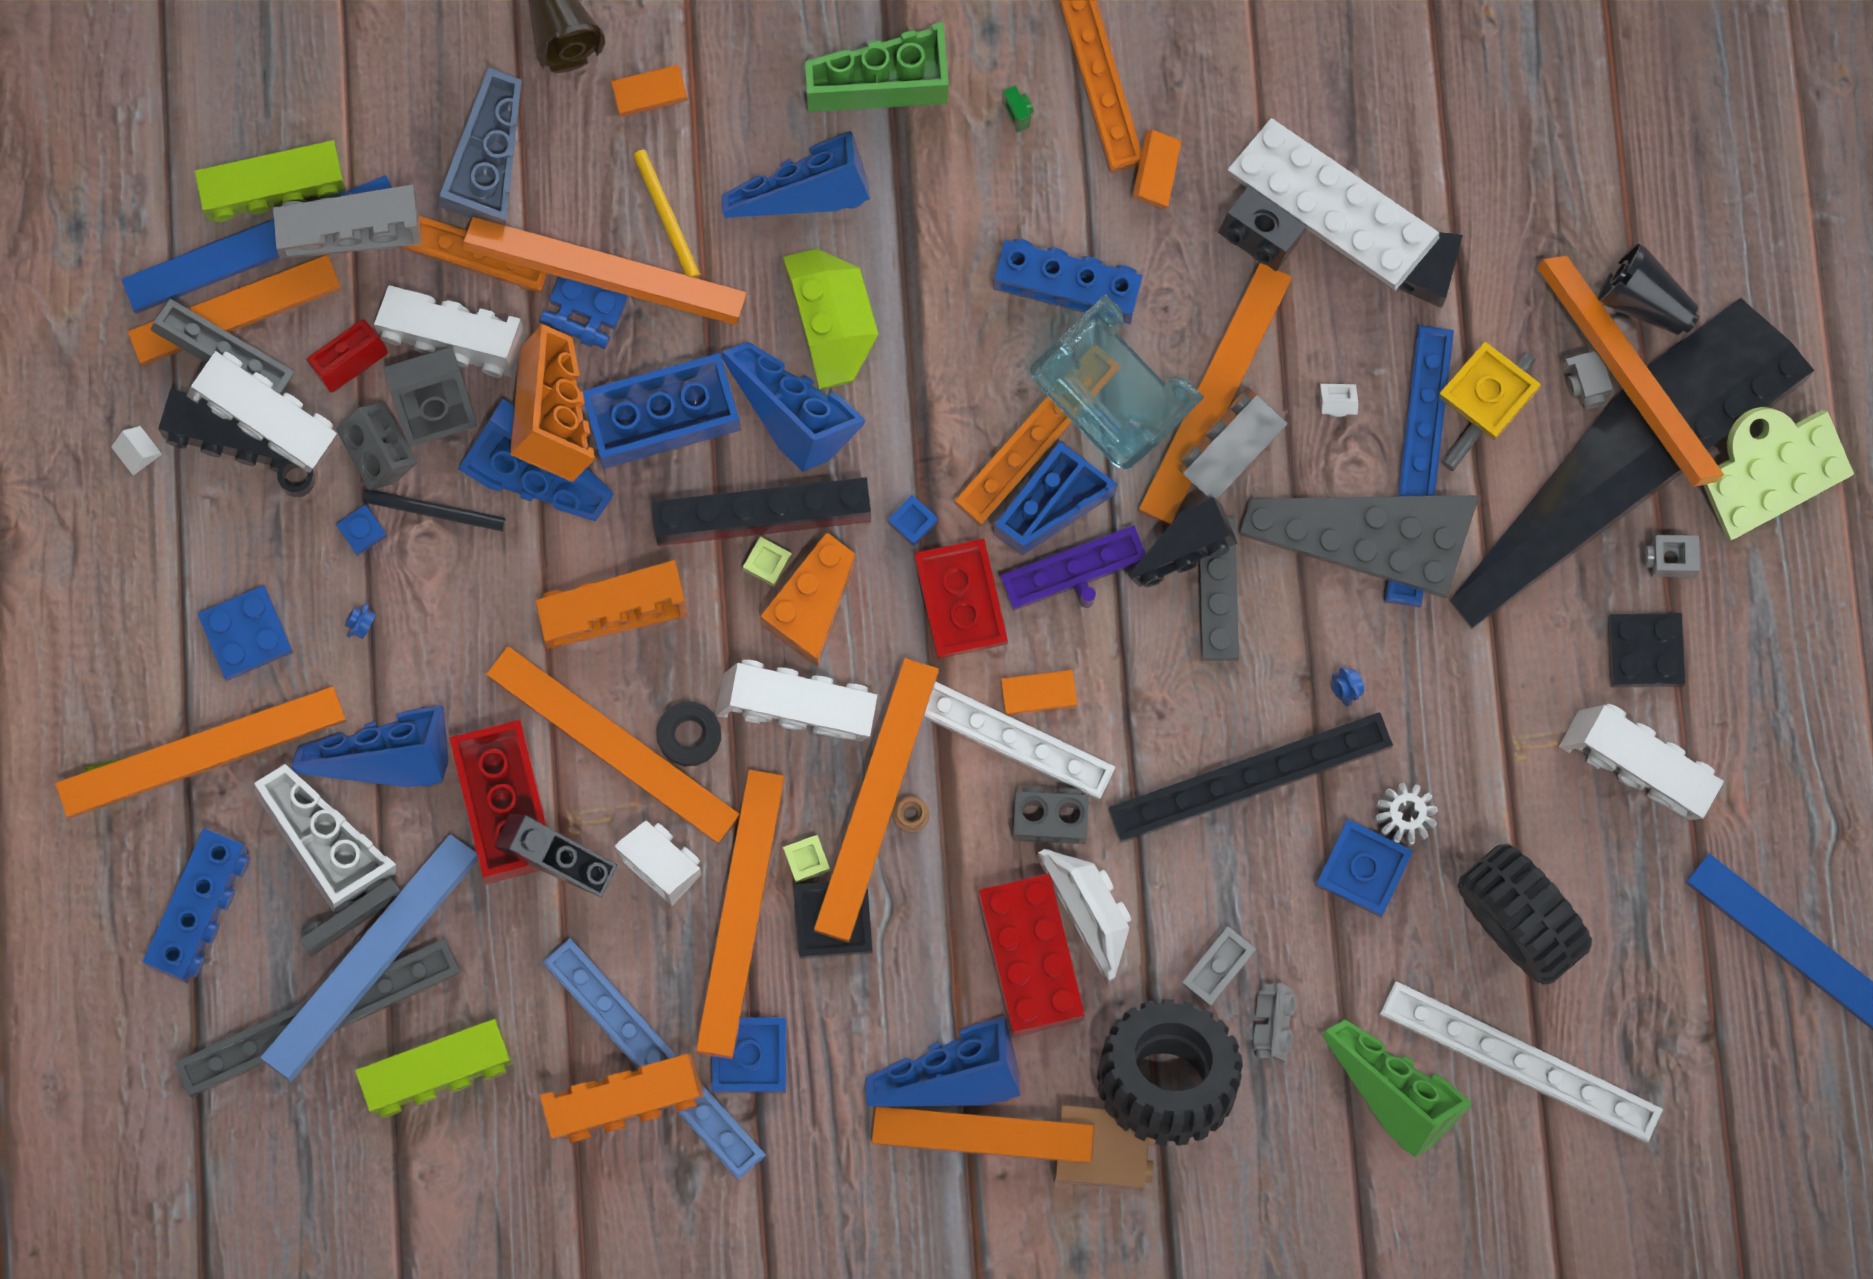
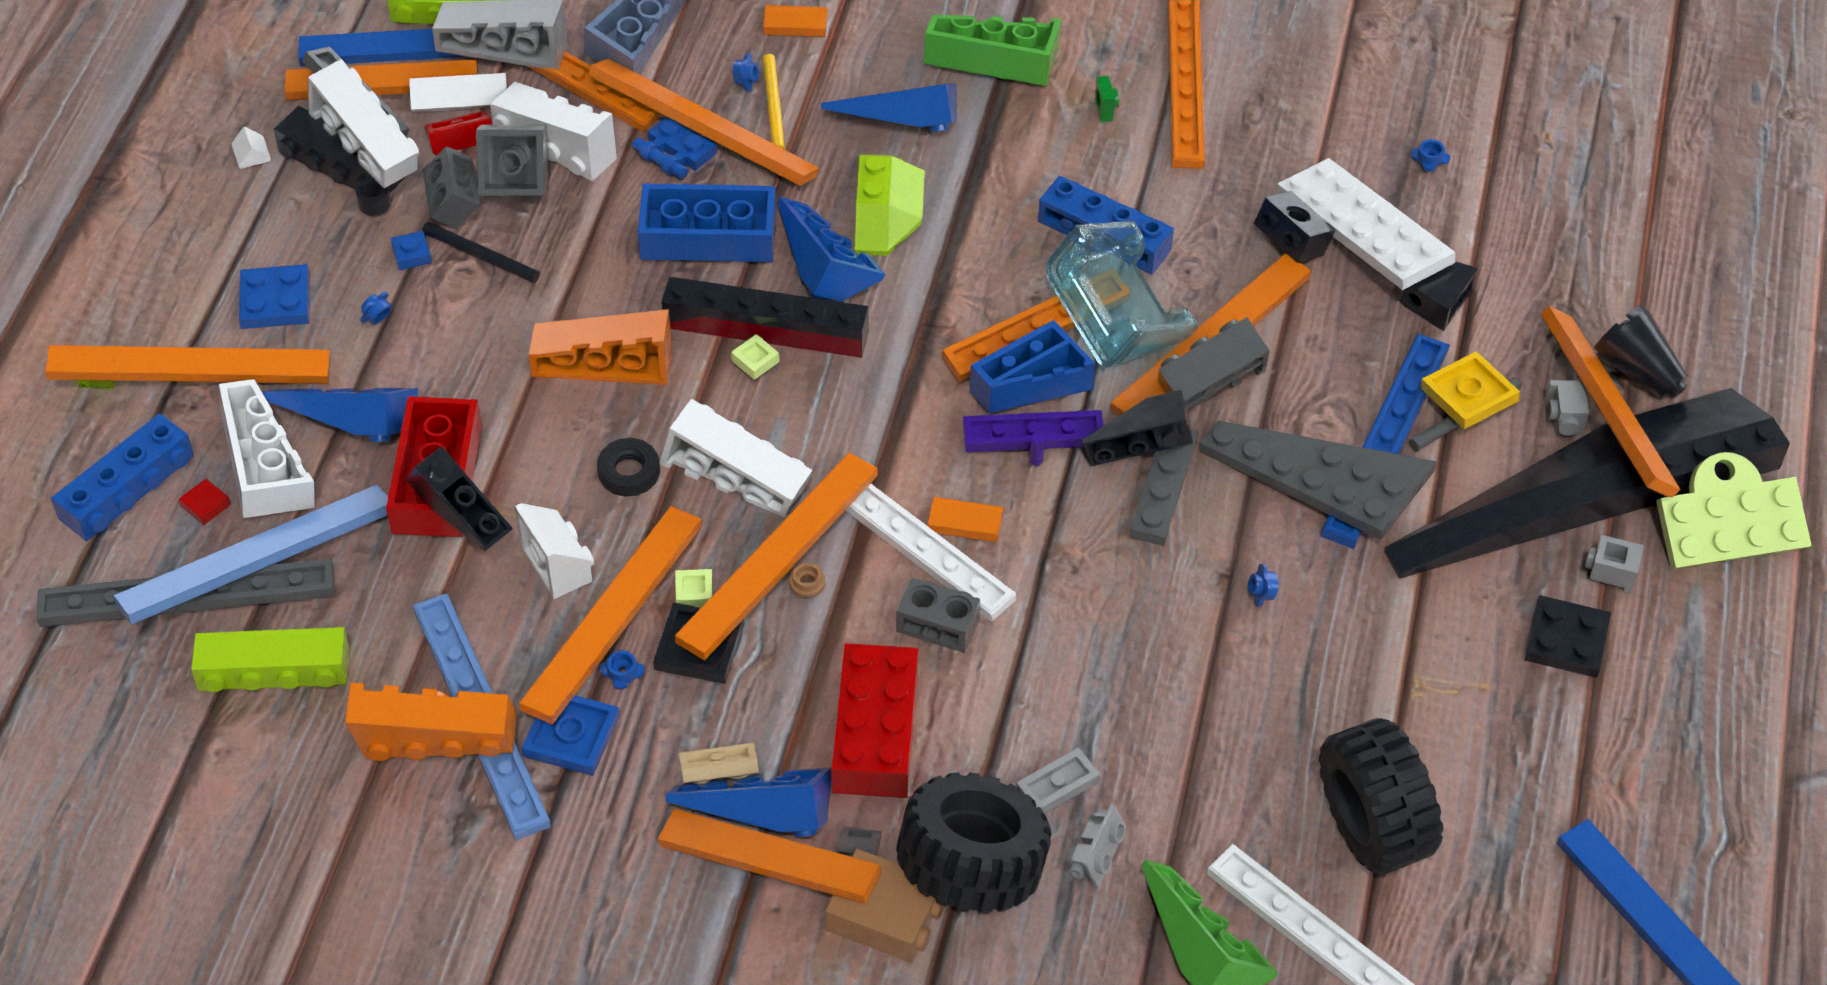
camera: 20 degrees right, 25 degrees down
(286, 905) = (204, 501): none -> red tile
(327, 307) = (456, 92): none -> white tile
(349, 916) = (243, 523): dark grey plate -> none
(496, 469) = (575, 232): blue wedge -> none
(548, 406) = (609, 186): orange wedge -> none
(613, 745) = (557, 460): orange tile -> none
(624, 185) = (745, 72): none -> blue plate
(768, 959) = (618, 661): none -> blue plate
(810, 600) = (783, 389): orange wedge -> none
(900, 1046) = (720, 762): none -> tan plate
(913, 520) = (899, 360): blue plate -> none
(961, 598) = (920, 428): red plate -> none
(1058, 1088) = (858, 838): none -> dark grey plate
(1090, 907) = (948, 697): white wedge -> none
(1157, 169) = (1214, 168): orange tile -> none
(1250, 777) = (1143, 634): black plate -> none
(1338, 399) = (1324, 368): white plate -> none
(1364, 868) = (1231, 738): blue plate -> none
(1374, 70) = (1430, 154): none -> blue plate
(1418, 811) = (1287, 703): white gear -> none
(1643, 760) = (1539, 716): white wedge -> none

